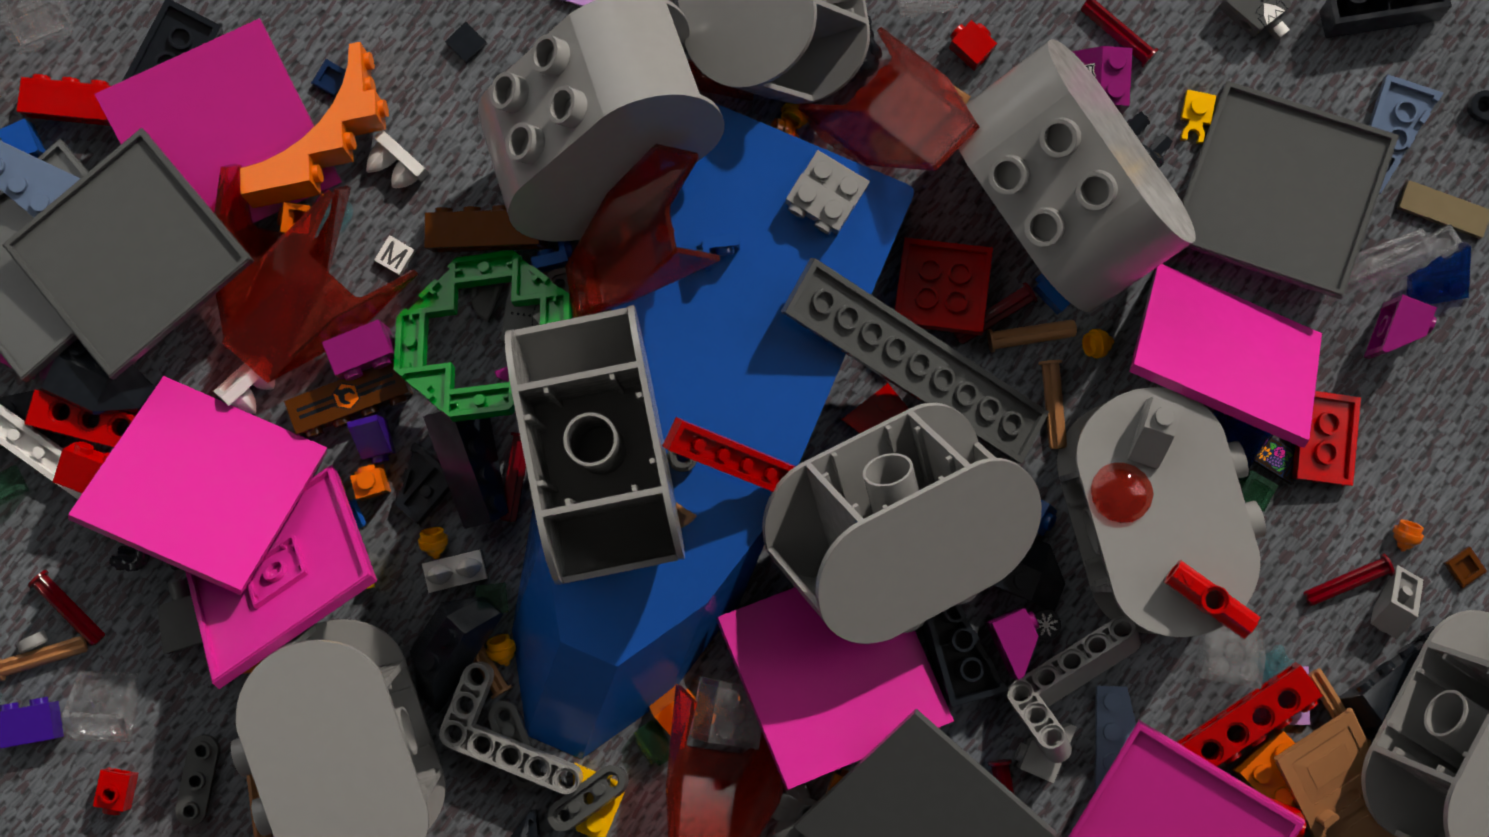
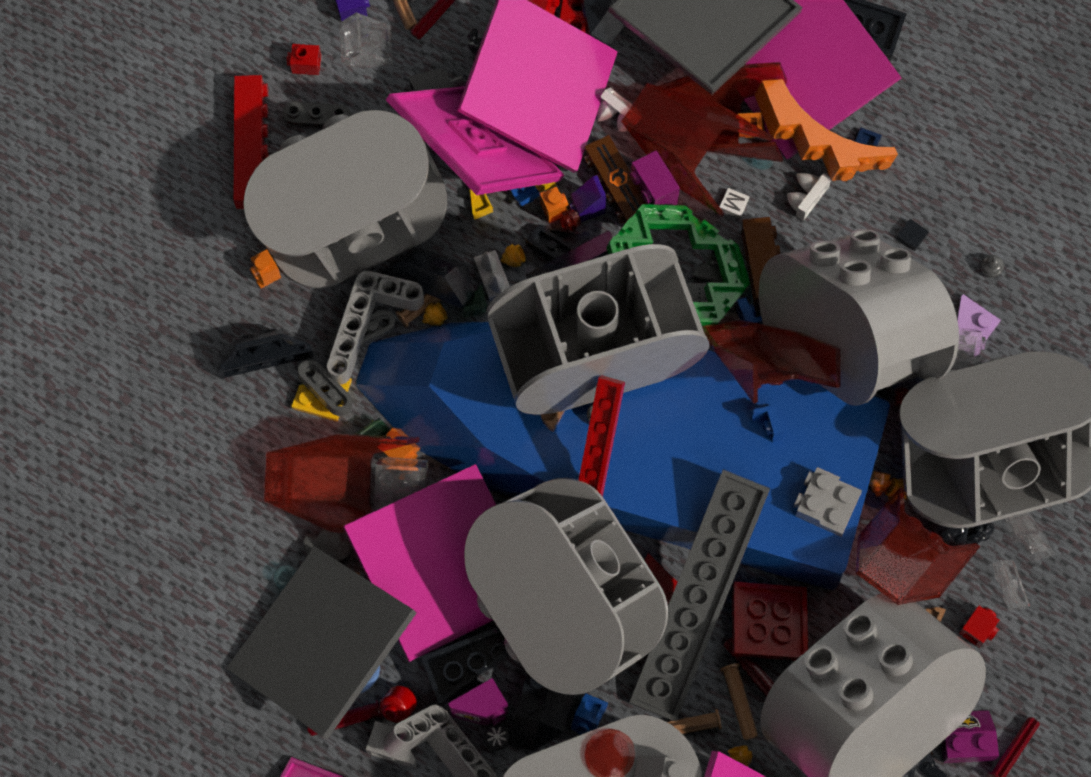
camera: 85 degrees right, 15 degrees down
(394, 464) = (570, 220): none -> clear red plate
(999, 739) = (398, 704): none -> red head

